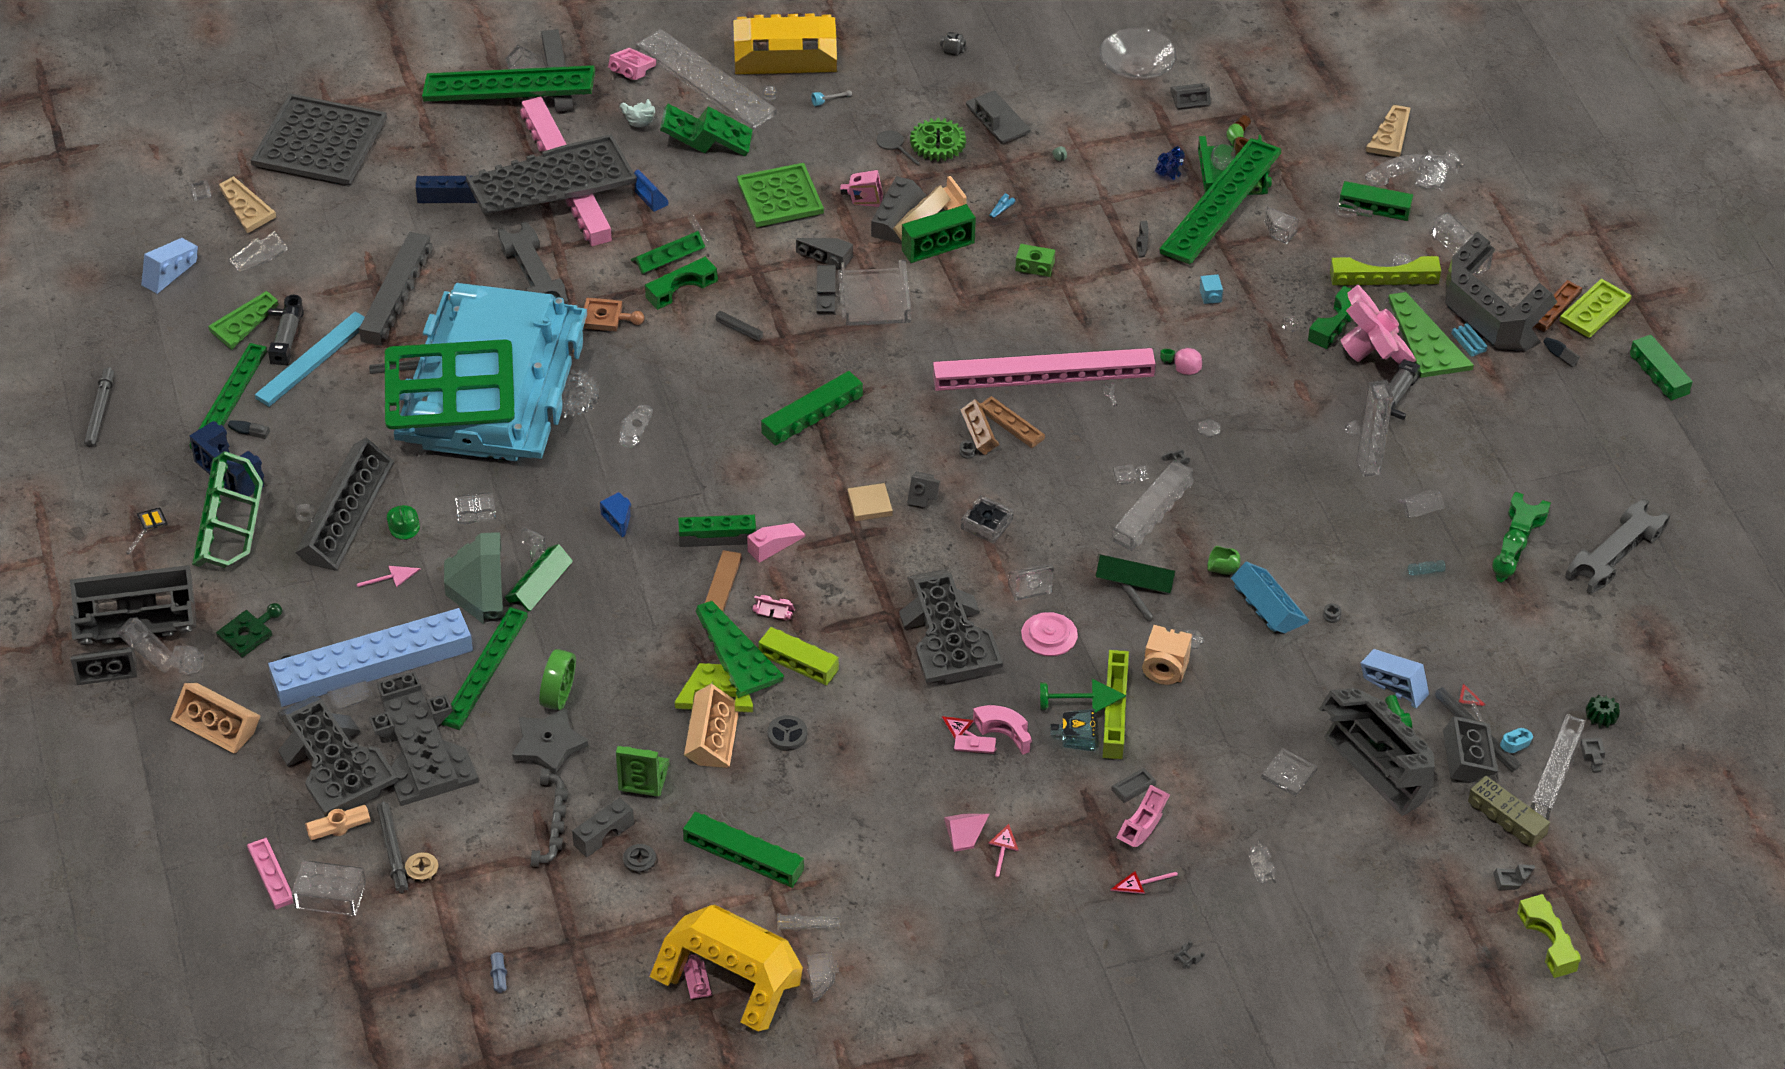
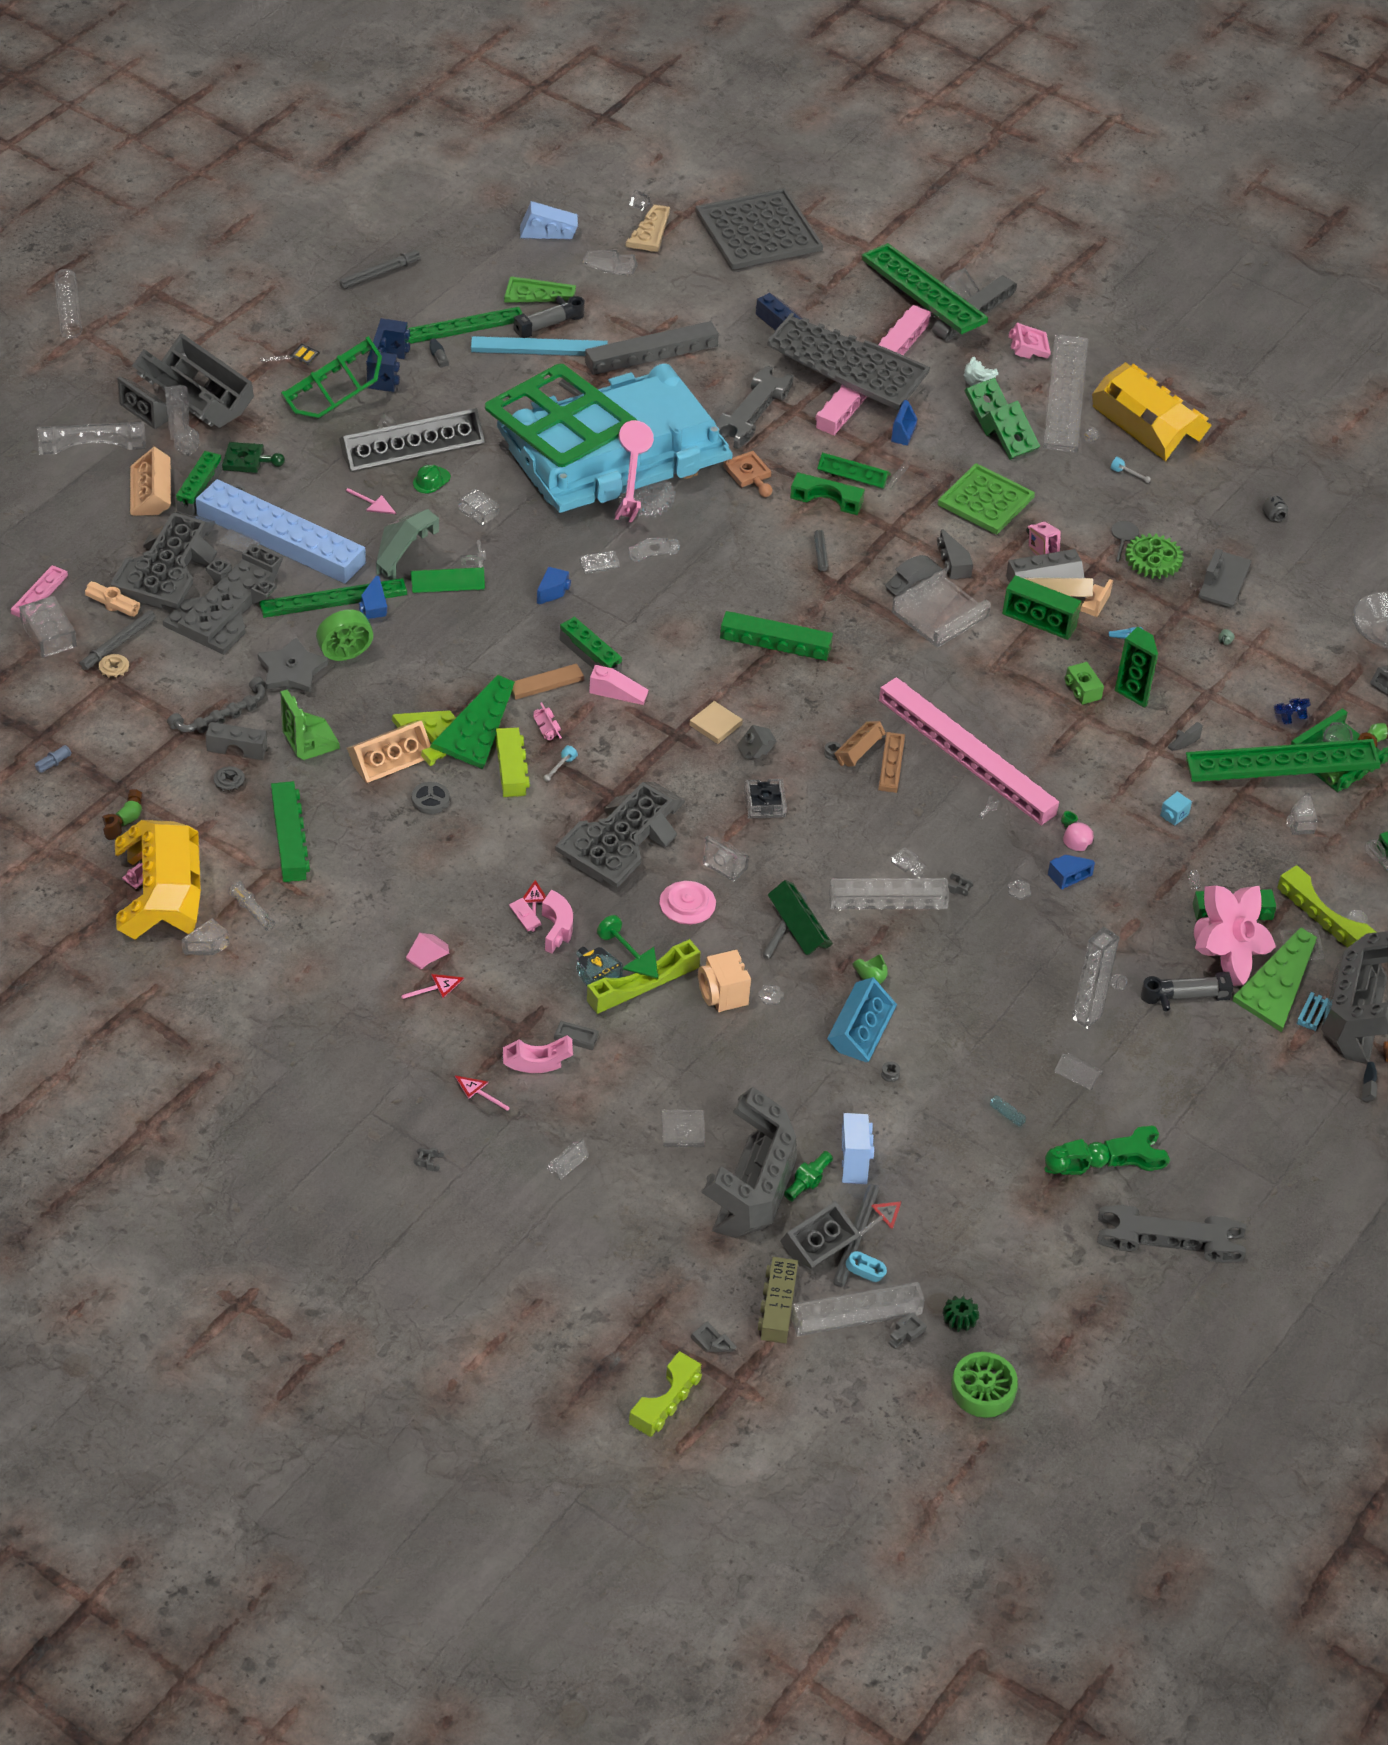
camera: 50 degrees right, 0 degrees up
(132, 699) = (57, 438): none -> clear arch
(250, 680) = (201, 477): none -> green piece
(522, 639) = (373, 600): none -> blue slope
(530, 354) = (636, 439): none -> bright pink piece
(618, 468) = (599, 562): none -> clear plate
(619, 952) = (125, 816): none -> piece
(823, 614) = (568, 755): none -> hinge
(1068, 215) = (1137, 666): none -> green slope
(1219, 387) = (1070, 870): none -> blue slope
(1677, 744) = (984, 1384): none -> bright green piece

